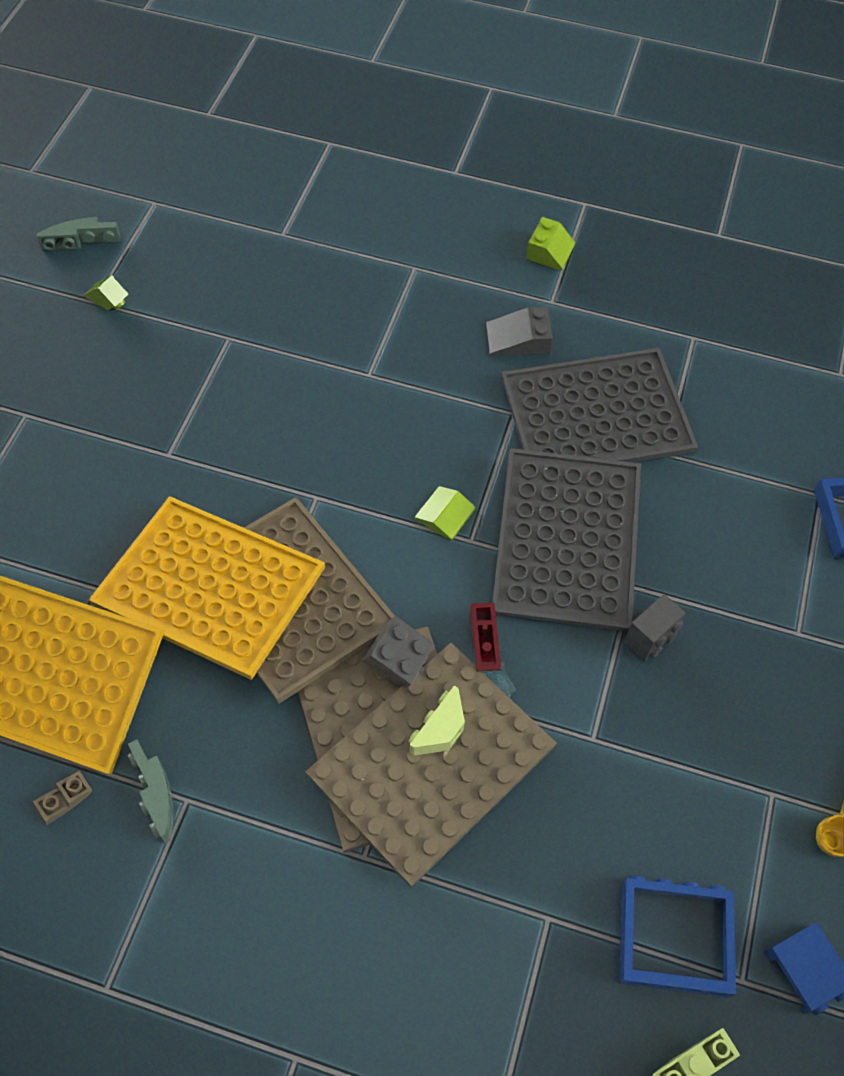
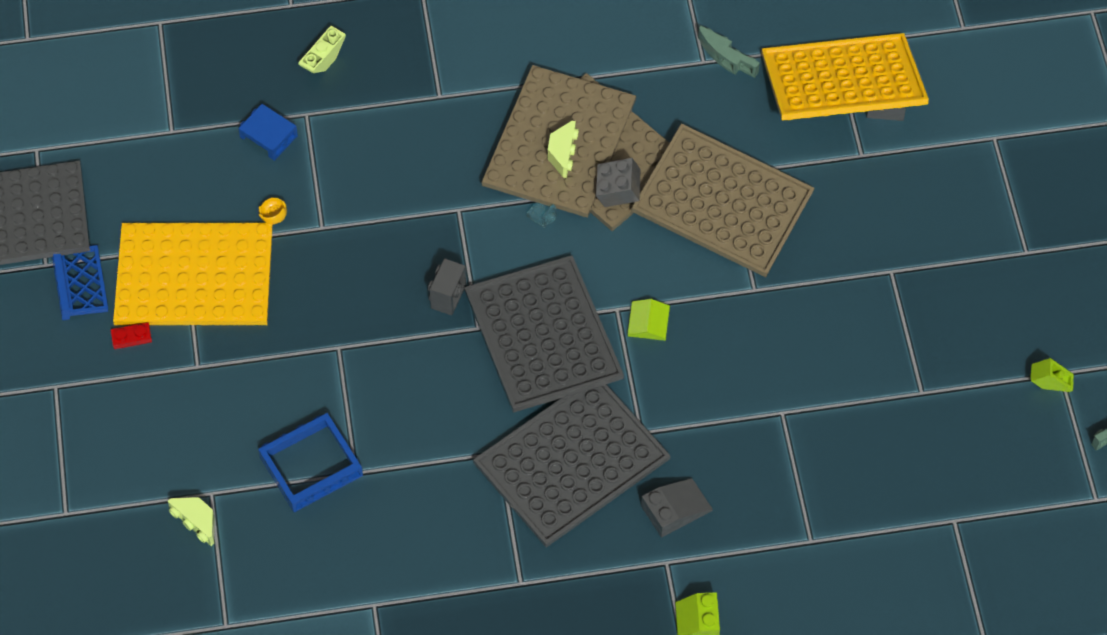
camera: 155 degrees right, 0 degrees up
(63, 798) = (780, 27): dark tan slope -> none
(209, 586) = (781, 176): yellow plate -> none
(484, 637) = (566, 228): dark red slope -> none
(671, 982) = (347, 91): blue window -> none

